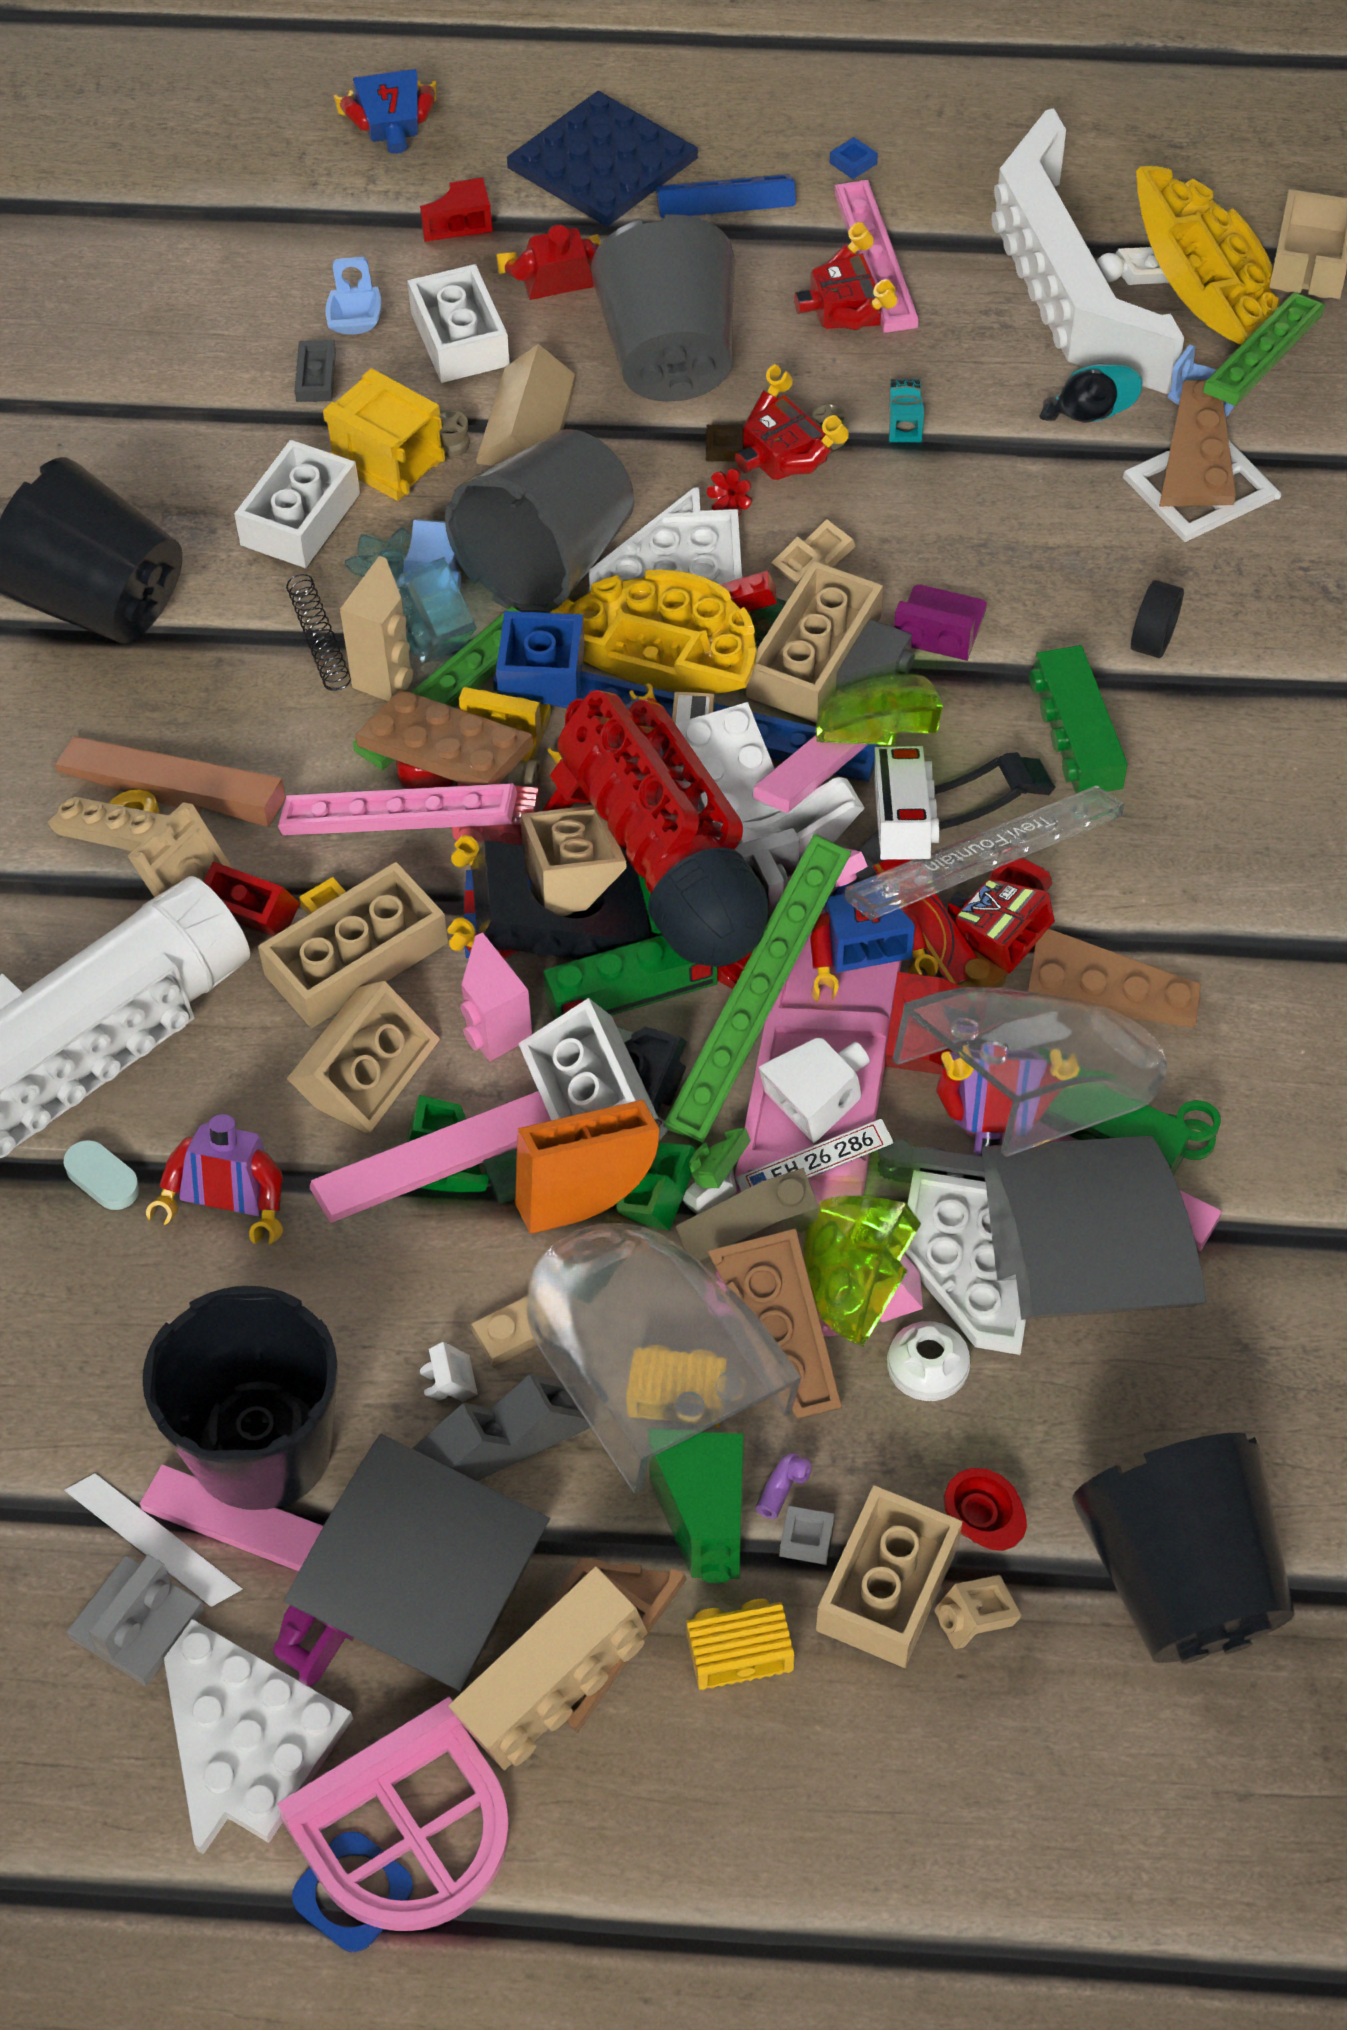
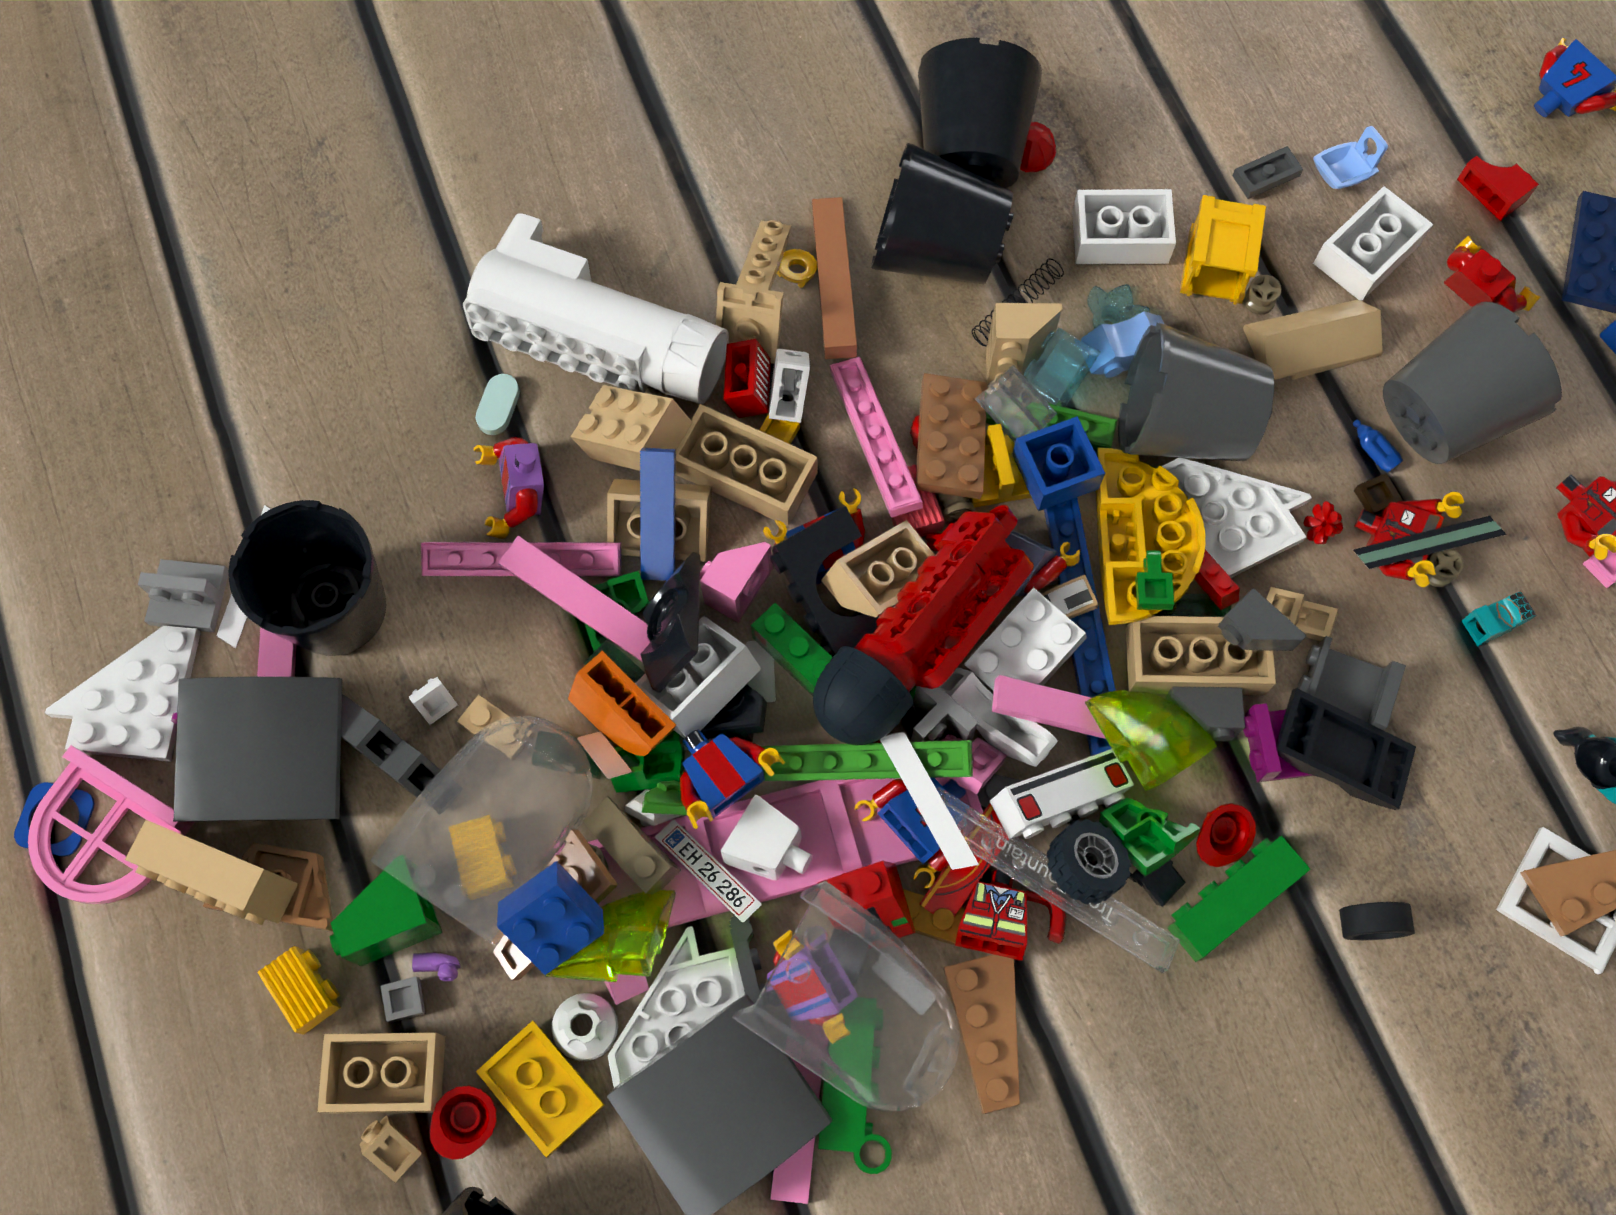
camera: 65 degrees right, 15 degrees up
(186, 639) = (942, 221): none -> black cone
(242, 1027) = (626, 422): none -> tan piece
(286, 856) = (790, 379): none -> white torso
(312, 1234) = (483, 558): none -> bright pink tile
(368, 1035) = (657, 513): none -> tile
(450, 662) = (1015, 404): none -> clear brick
(516, 1062) = (672, 624): none -> black slope
(628, 1208) = (604, 755): none -> sticker
(674, 420) = (1377, 447): none -> blue piece
(717, 1086) = (721, 773): none -> torso
(731, 627) = (1153, 587): none -> green plate
(803, 417) = (1429, 542): none -> sticker
(806, 1293) = (550, 918): none -> blue brick
(819, 564) = (1259, 626): none -> dark grey slope
(858, 896) = (928, 801): none -> white sticker
(915, 547) = (1352, 683): none -> dark grey panel
(976, 572) = (1344, 750): none -> black slope
(977, 762) = (1147, 833): none -> green slope
(980, 1424) = (540, 1088): none -> yellow plate
(986, 808) = (1088, 861): none -> black wheel
(1009, 699) = (1225, 835): none -> red piece

